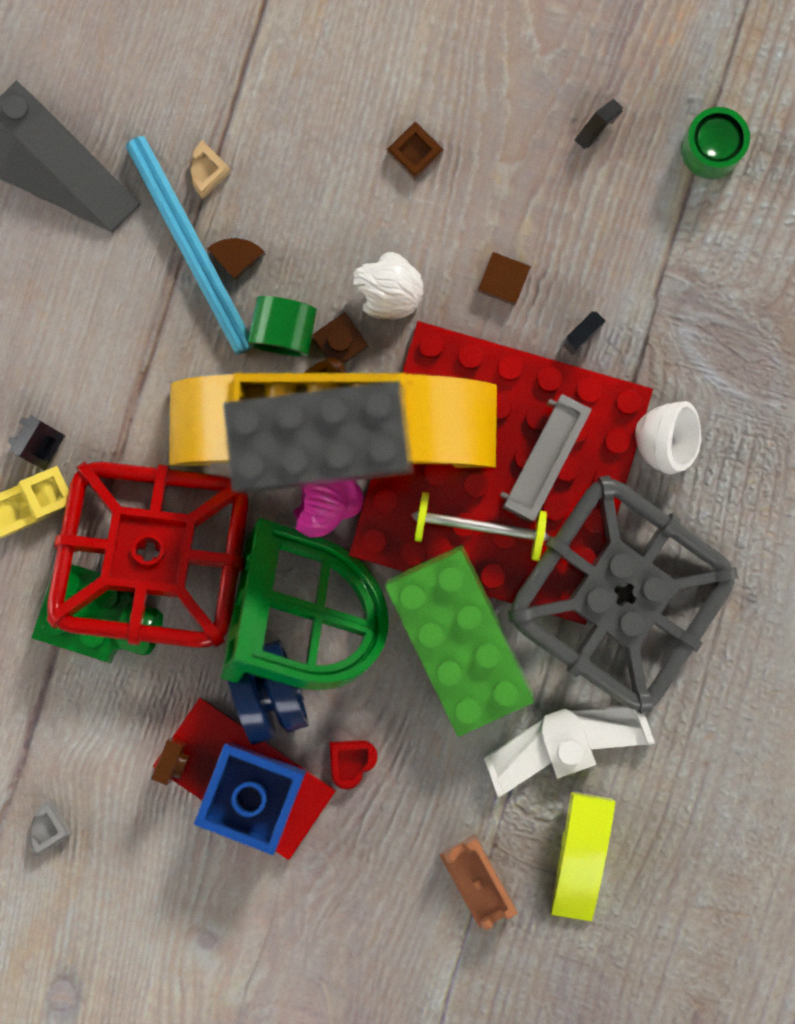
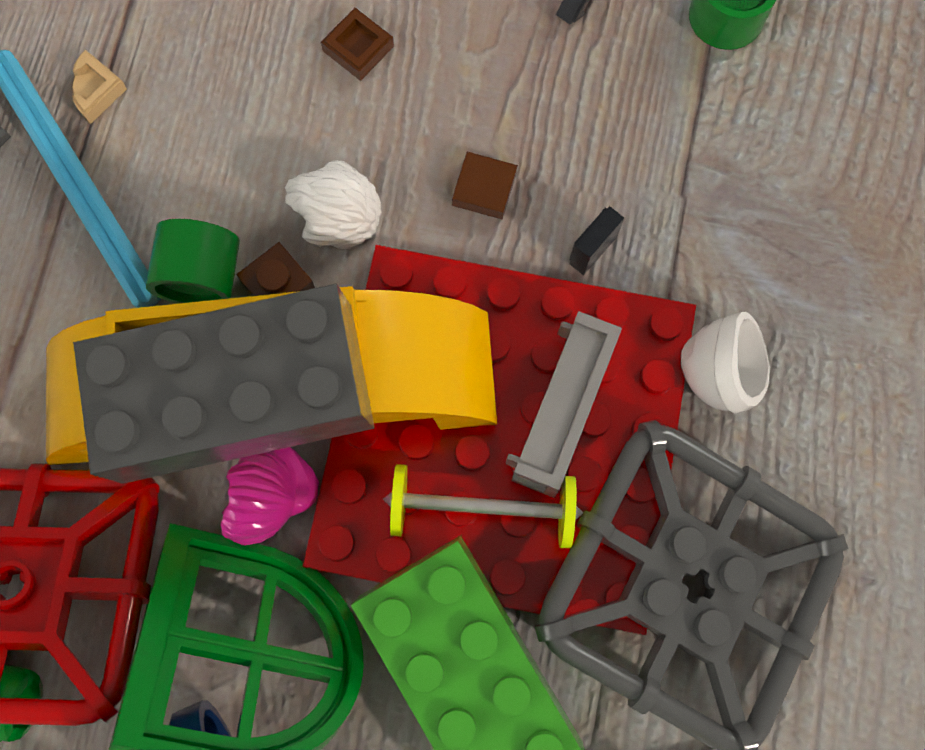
camera: 10 degrees left, 10 degrees down
(236, 255) = (134, 185): reddish brown tile -> none

